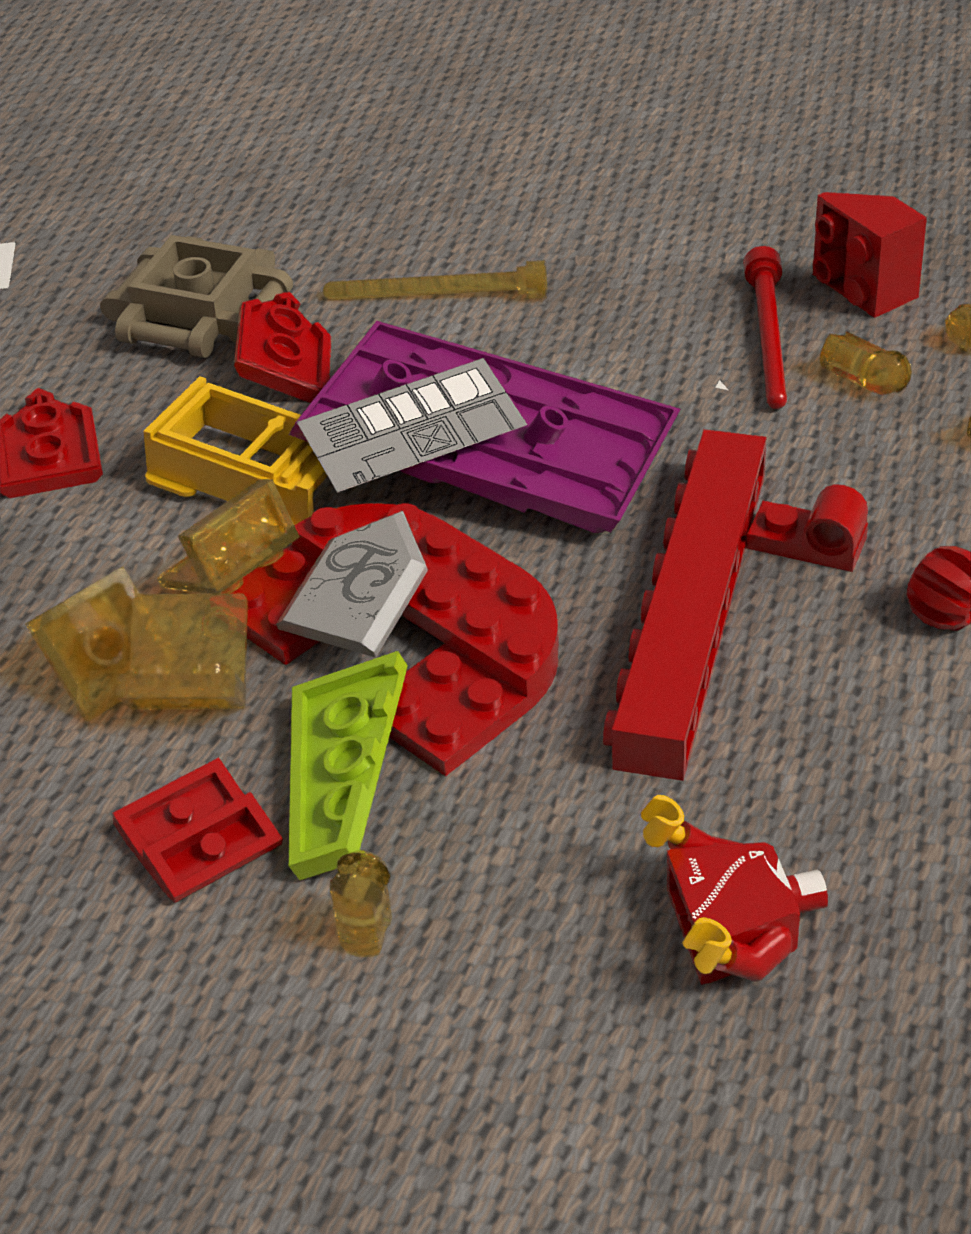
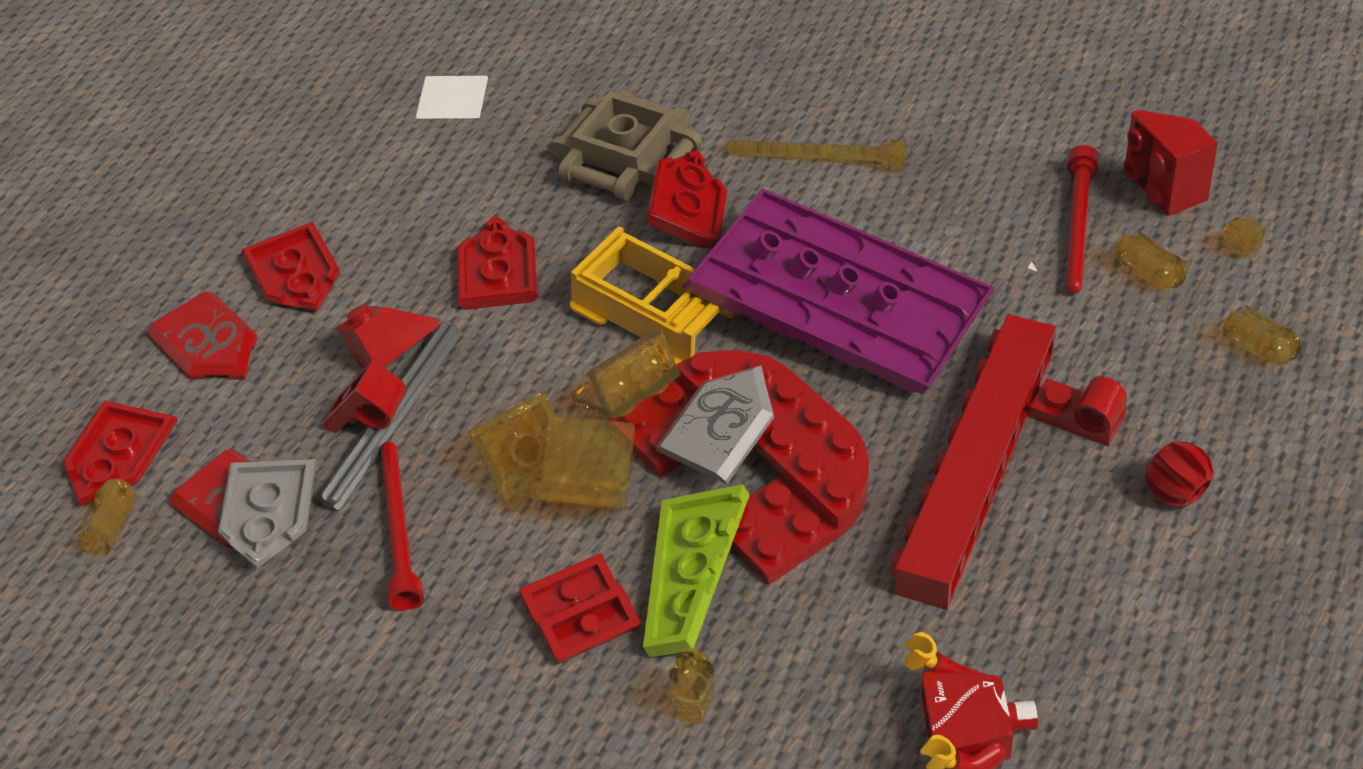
camera: 10 degrees right, 5 degrees up
(410, 424) = (777, 289): light grey sticker -> none

